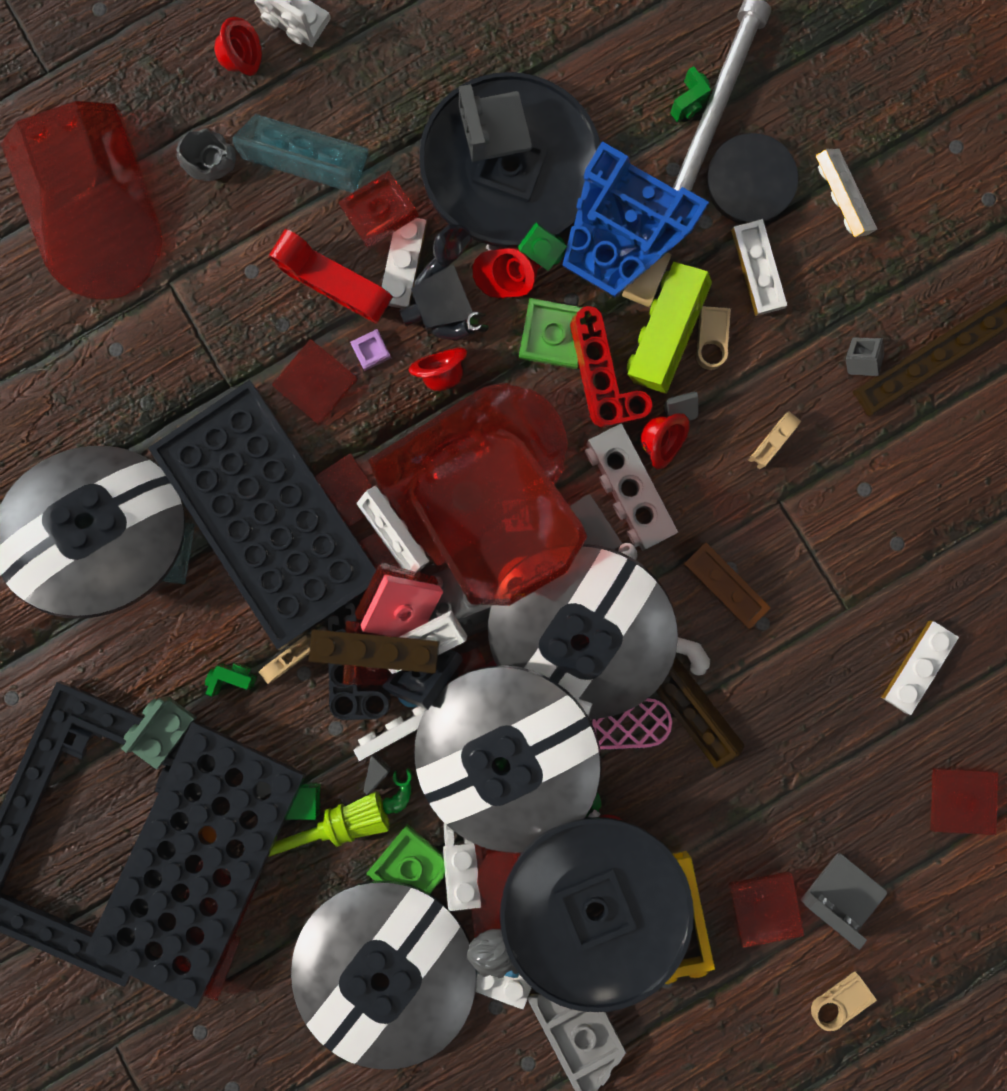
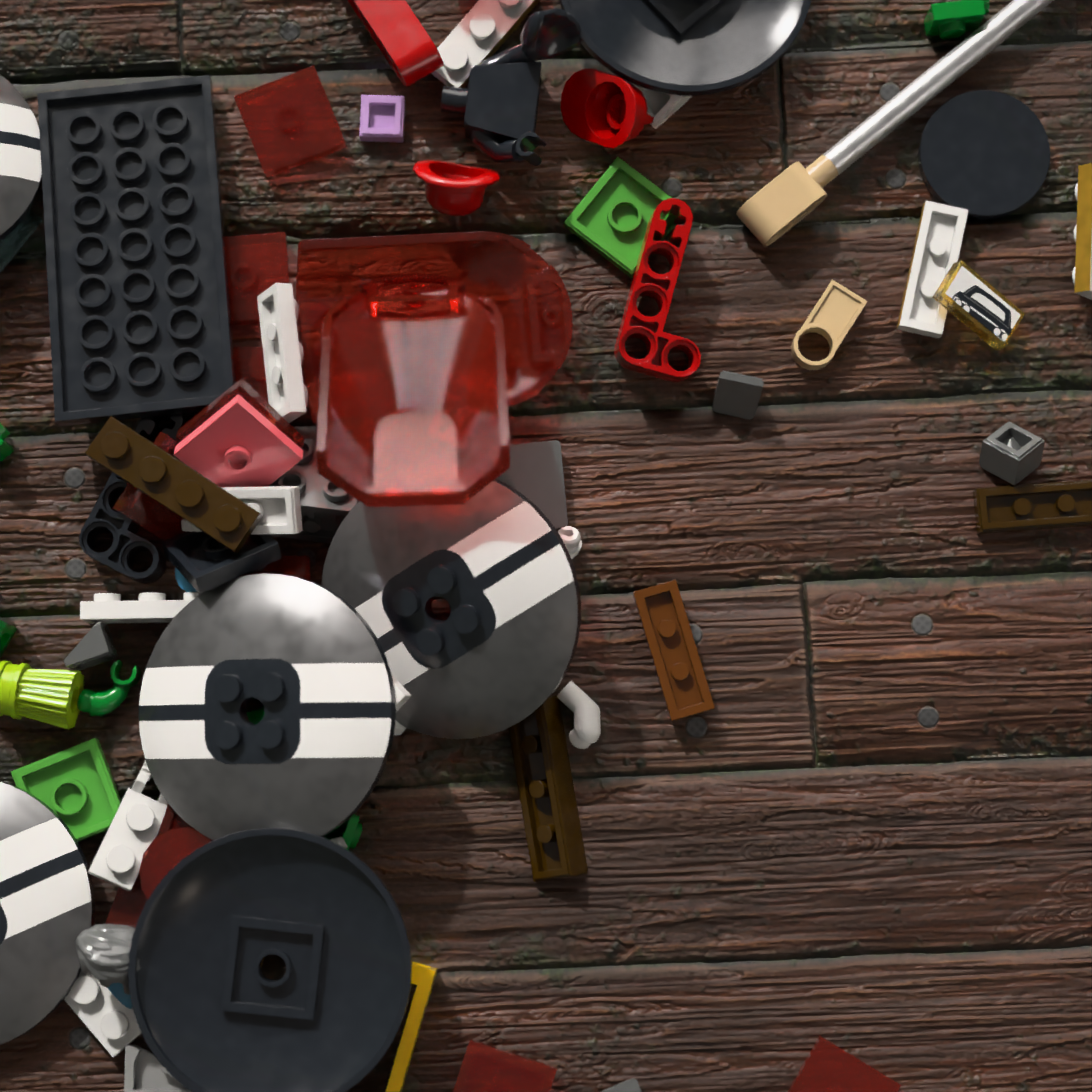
camera: 30 degrees right, 5 degrees down
(286, 659) = (57, 446): tan piece -> none
(543, 247) = (664, 98): green bracket -> none
(618, 442) = (625, 391): light grey brick -> none
(625, 221) = (784, 119): blue wedge -> none
(639, 744) = (408, 740): bright pink window -> none
(664, 438) = (693, 420): red hat -> none
(669, 327) = (774, 283): lime brick -> none
(775, 440) = (835, 496): tan piece -> none
(799, 275) = (978, 305): none -> tile
(920, 667) = (871, 892): white plate -> none

